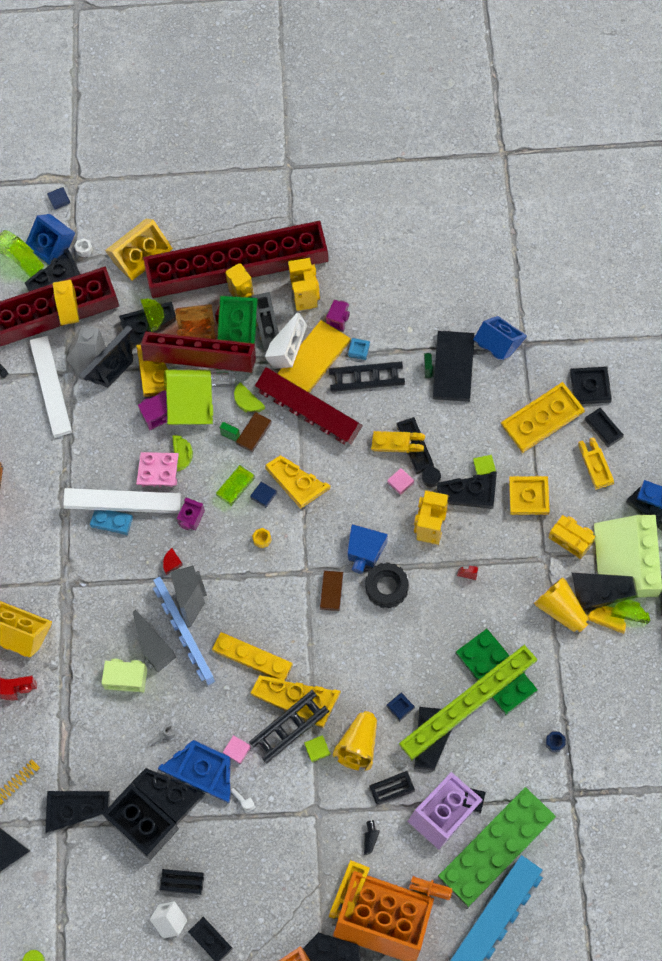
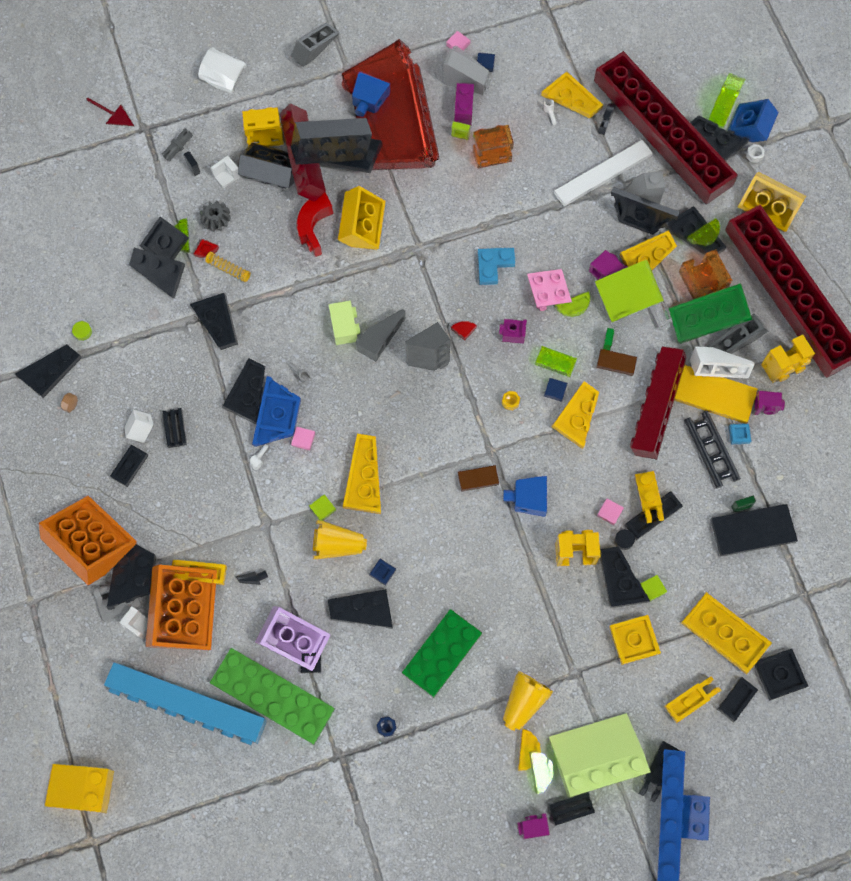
camera: 70 degrees right, 5 degrees up
(58, 198) = (800, 115): dark blue tile -> none
(66, 302) = (684, 151): yellow slope -> none
(122, 500) = (507, 267): white tile -> none
(140, 821) = (214, 375): black brick -> none
(186, 639) = (390, 366): light blue plate -> none
(198, 352) = (676, 284): dark red brick -> none
(239, 282) = (766, 300): yellow brick -> none
(246, 400) = (647, 345): lime tile -> none
(252, 657) = (393, 426): yellow plate -> none
(276, 726) = (335, 487): black bar -> none
(386, 570) = (504, 513): black tyre -> none
(410, 789) = (312, 598): black tile -> none
(431, 888) = (217, 644): orange axle -> none
(467, 702) = (401, 633): lime tile -> none
(470, 573) = (534, 601): red tile -> none
(499, 337) = (801, 567): blue slope -> none
(572, 536) = (603, 693): yellow brick -> none
(603, 589) = (554, 737): black wing -> none

